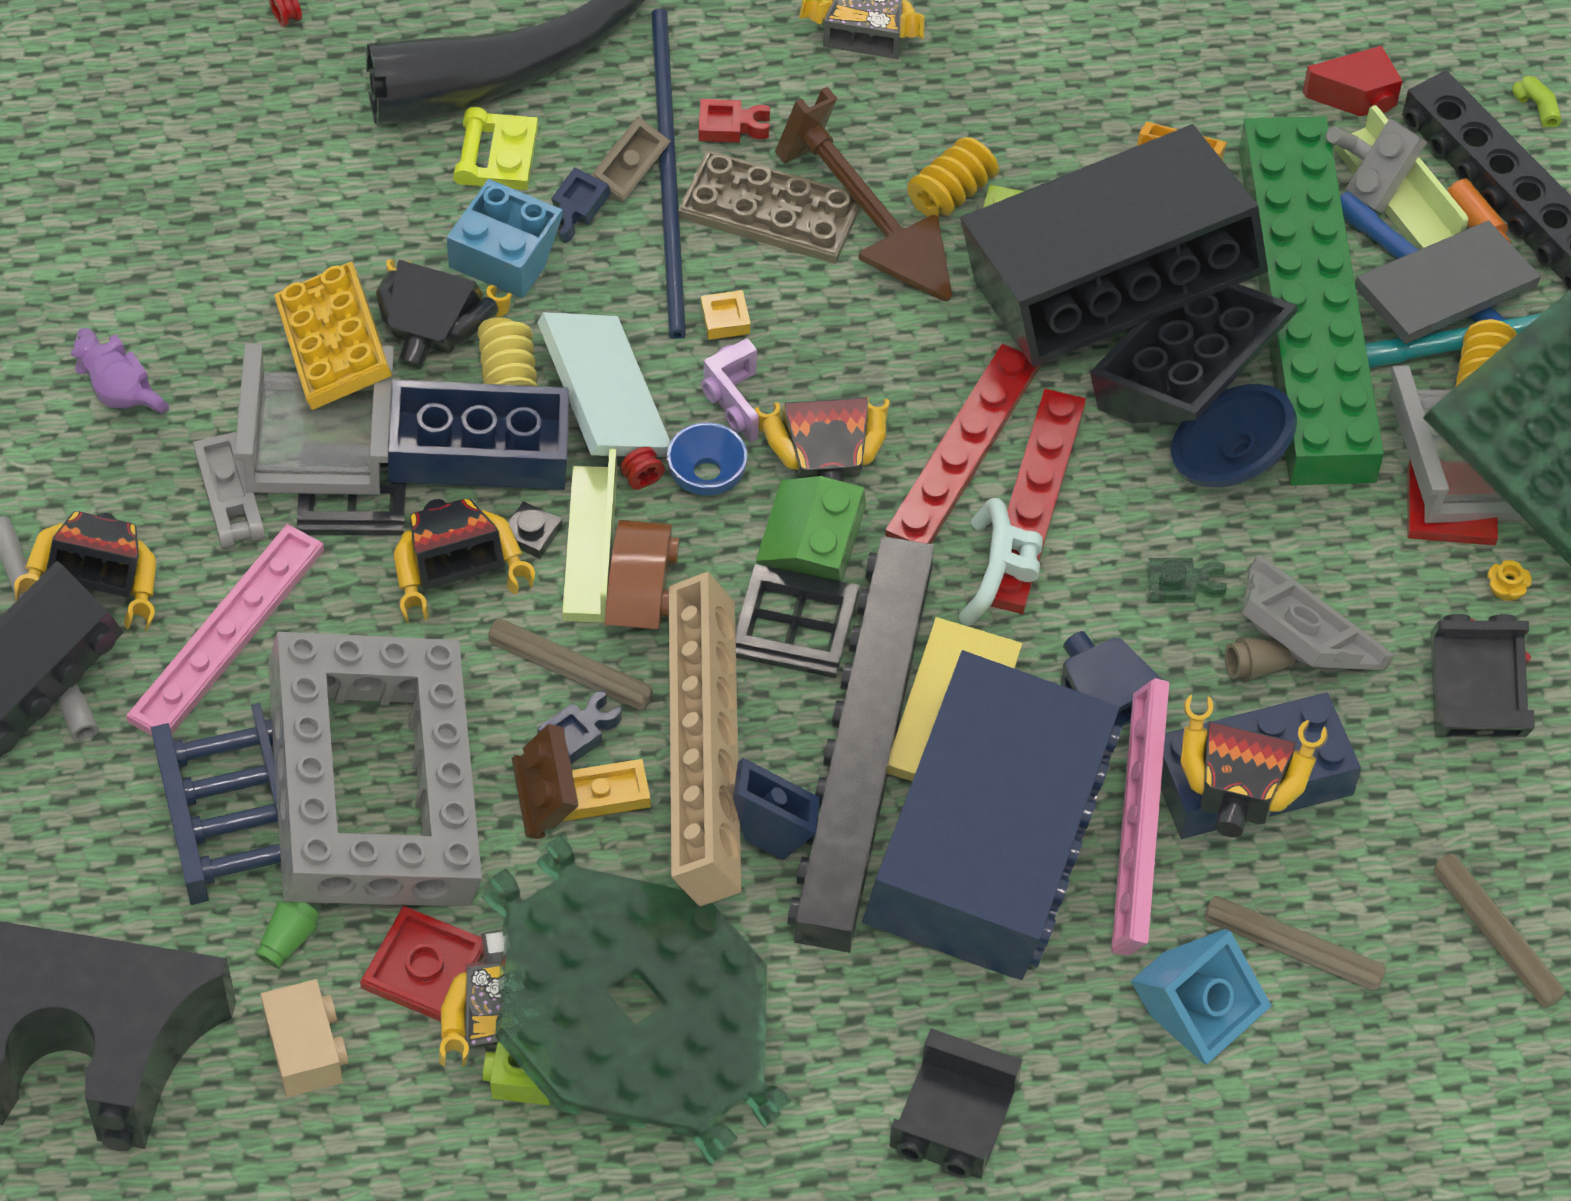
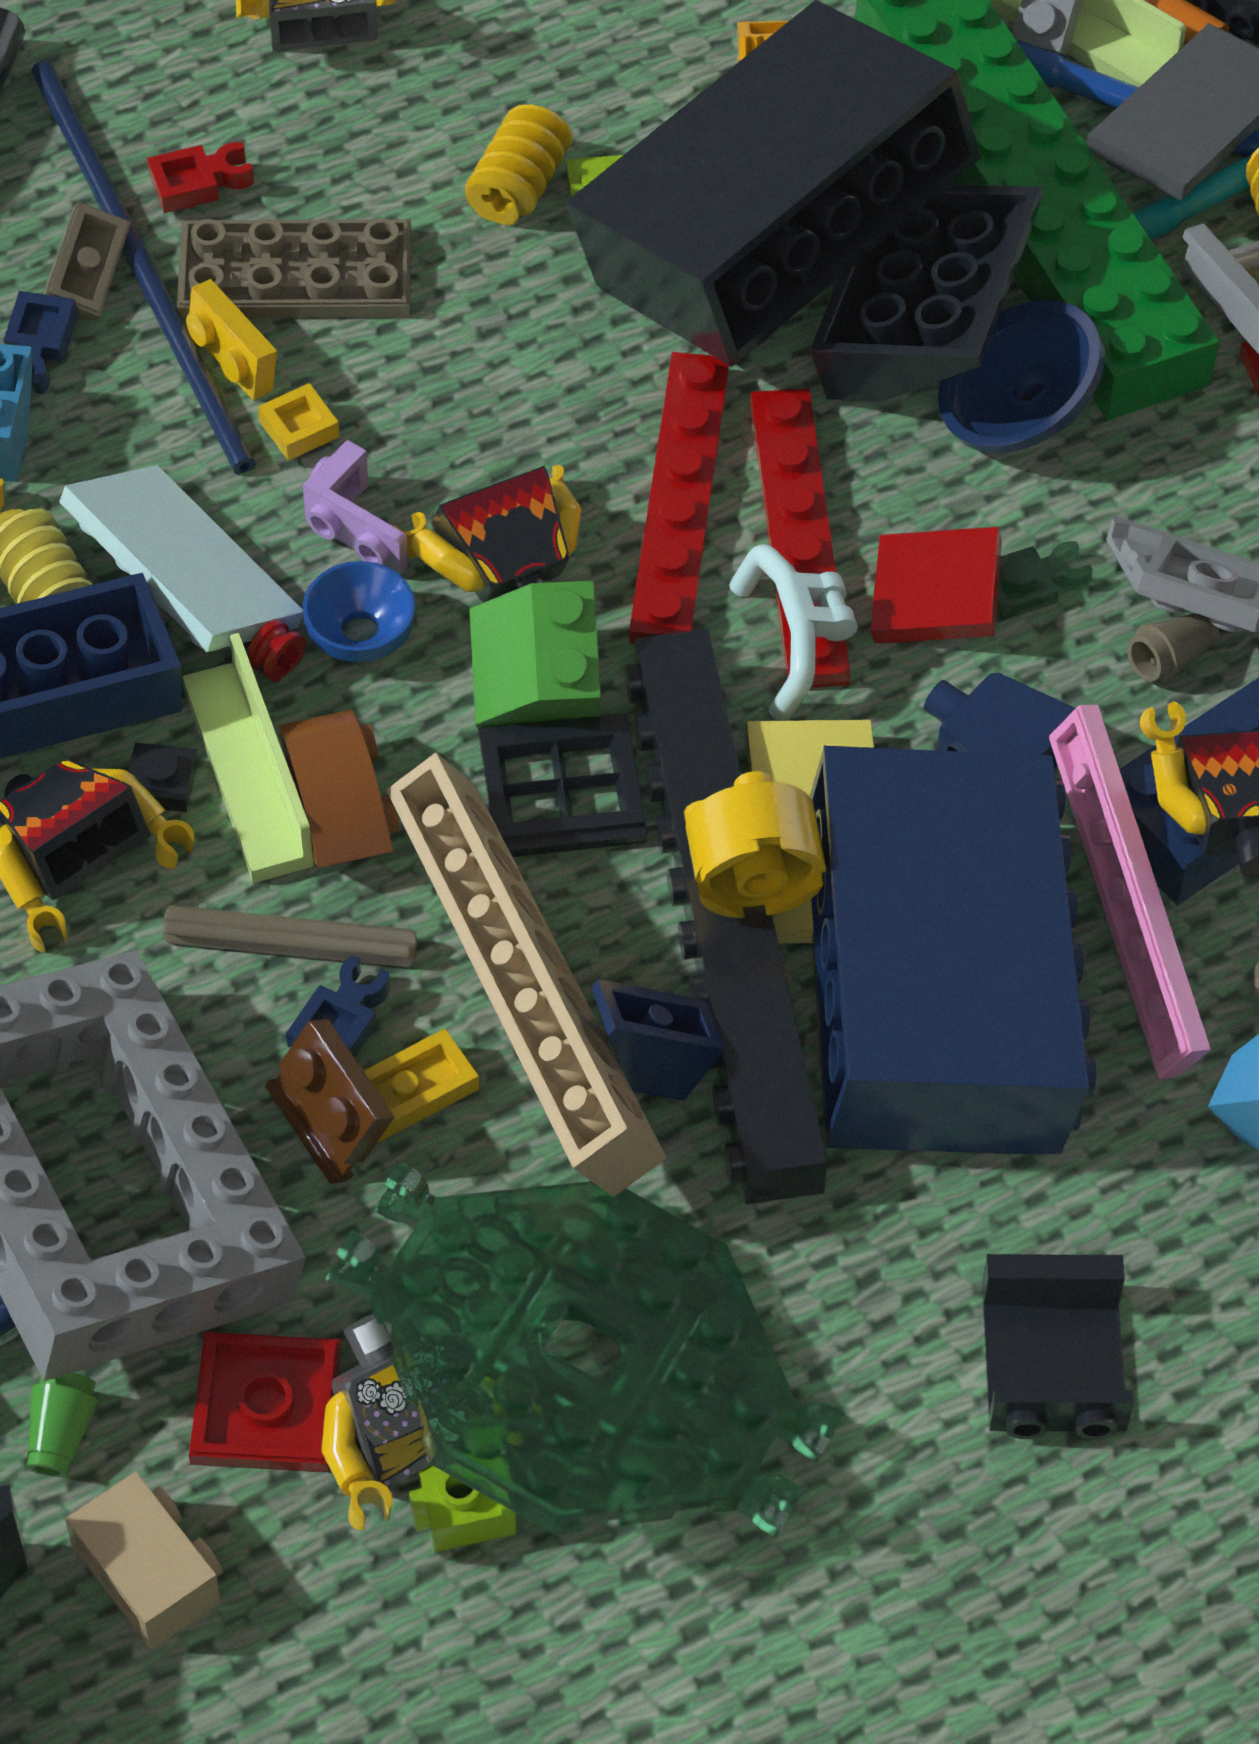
camera: 20 degrees left, 0 degrees up
(705, 249) = (231, 340): none -> yellow plate
(888, 703) = (755, 847): none -> yellow brick
(906, 253) = (497, 275): reddish brown piece -> none
(1111, 564) = (936, 585): none -> red tile

